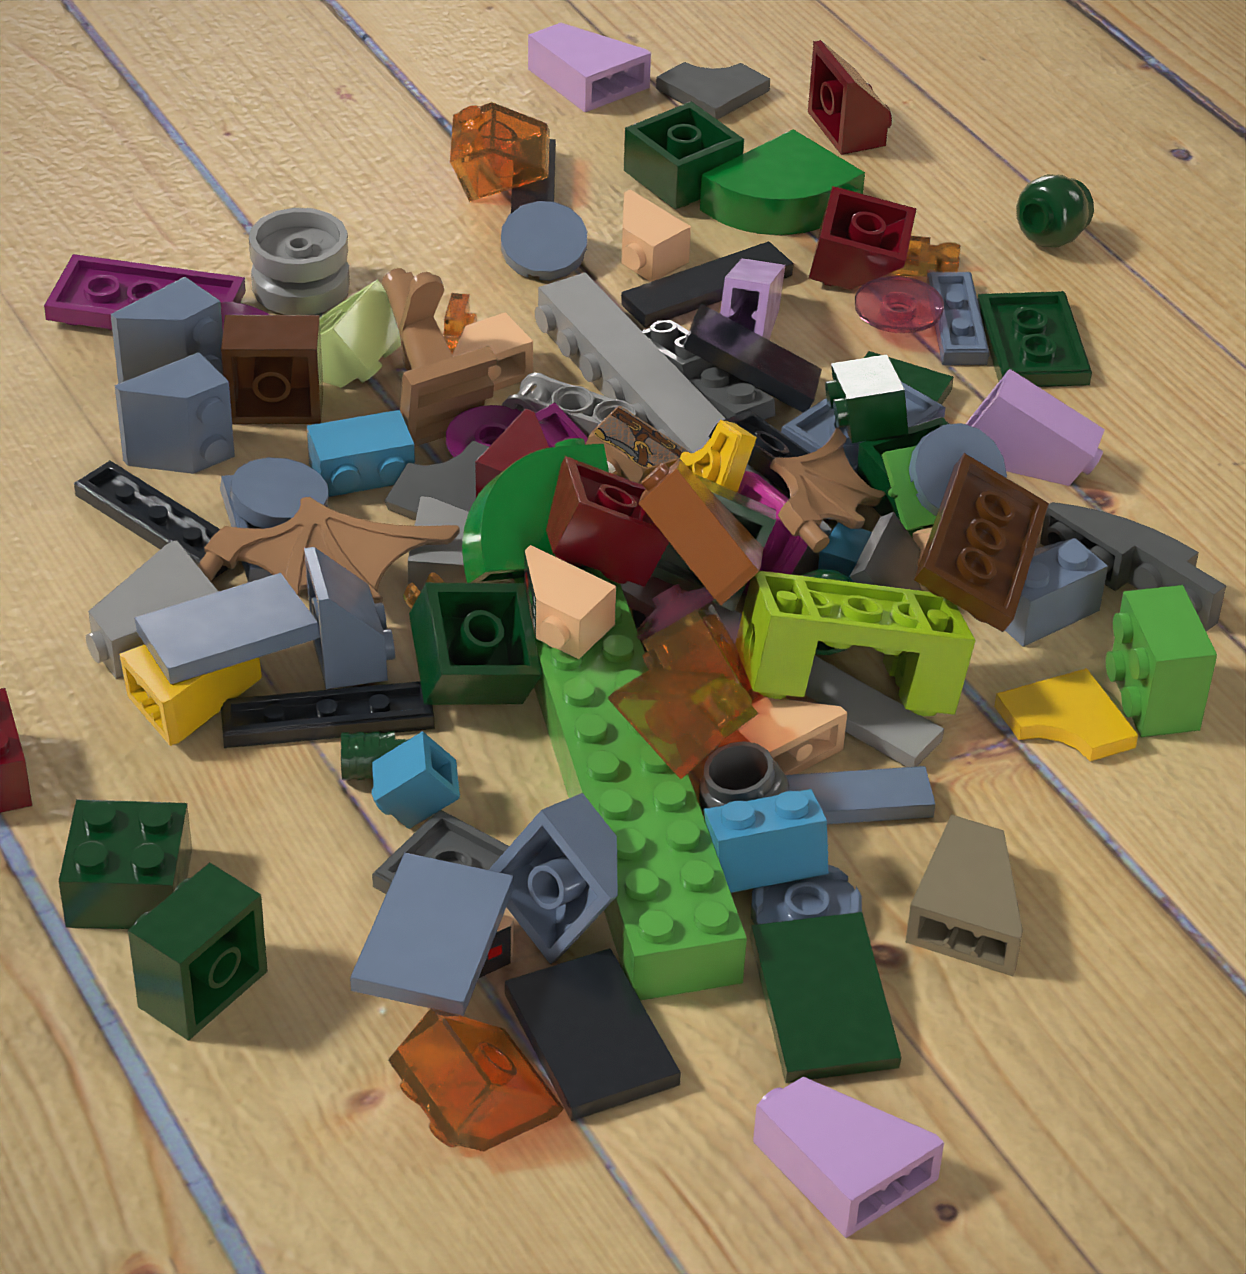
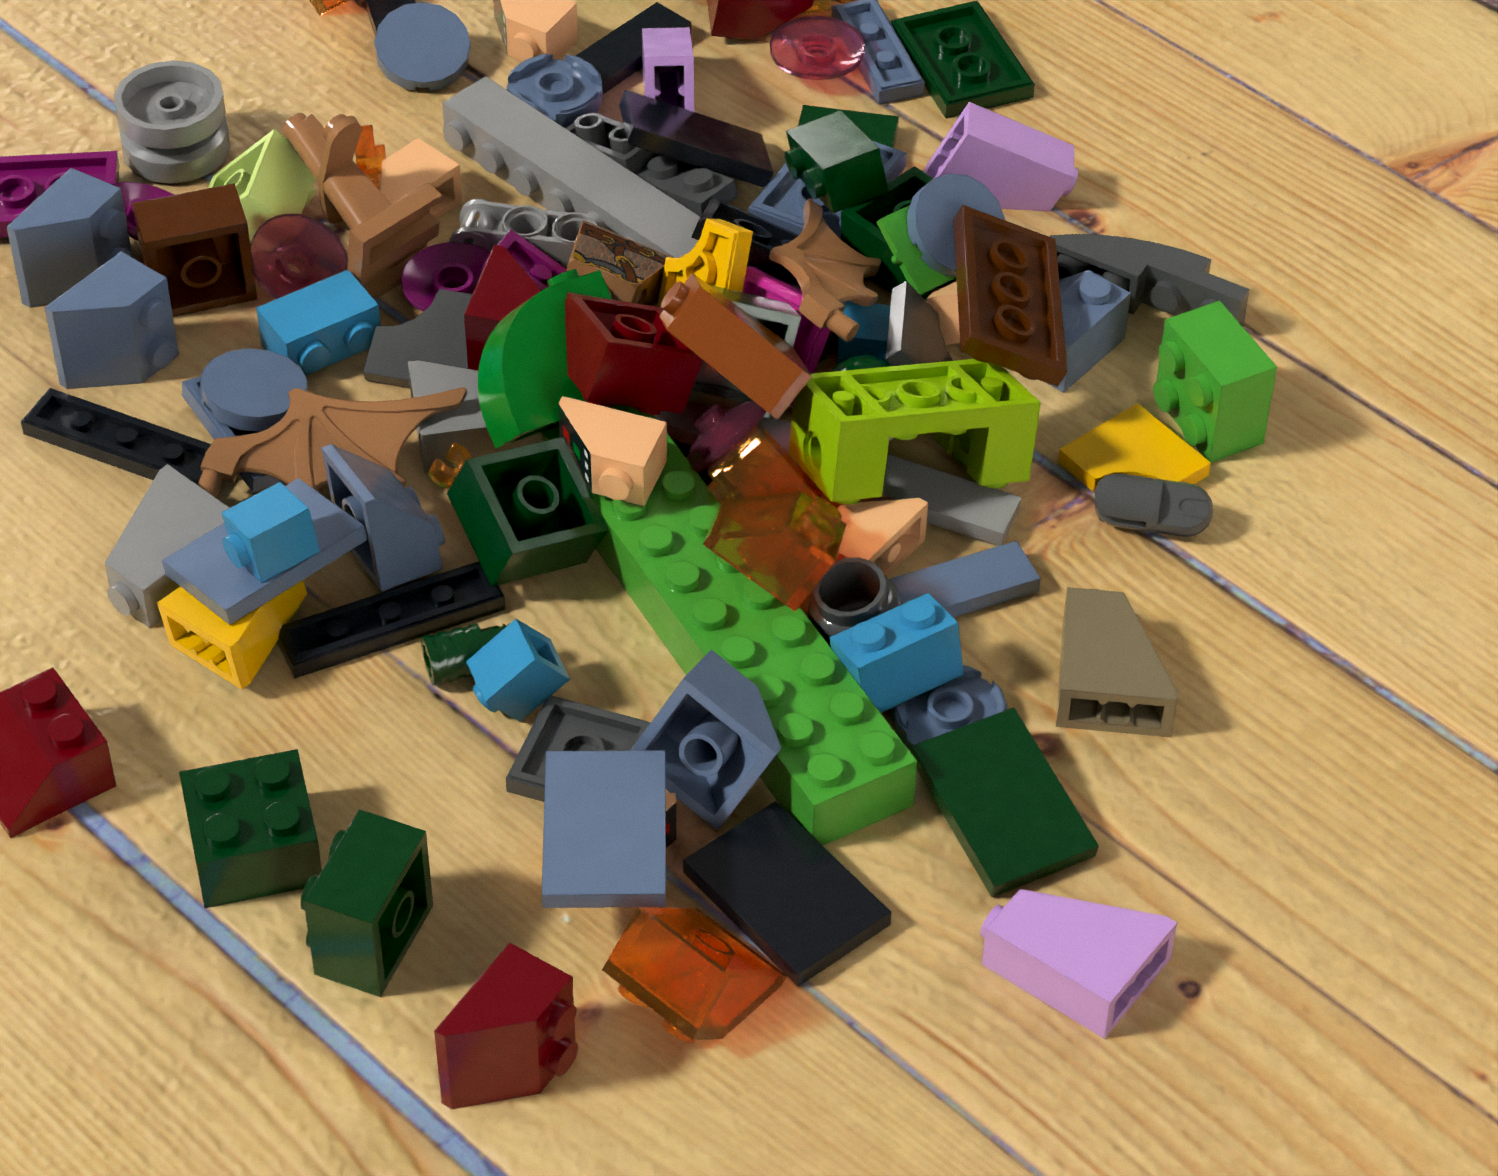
camera: 15 degrees left, 5 degrees up
(227, 610) = (269, 532): none -> dark azure brick
(274, 1094) = (507, 1032): none -> dark red slope
(362, 378) = (299, 242): none -> clear pink dish
(649, 294) = (557, 86): none -> sand blue tile
(1066, 760) = (1153, 505): none -> dark grey arm

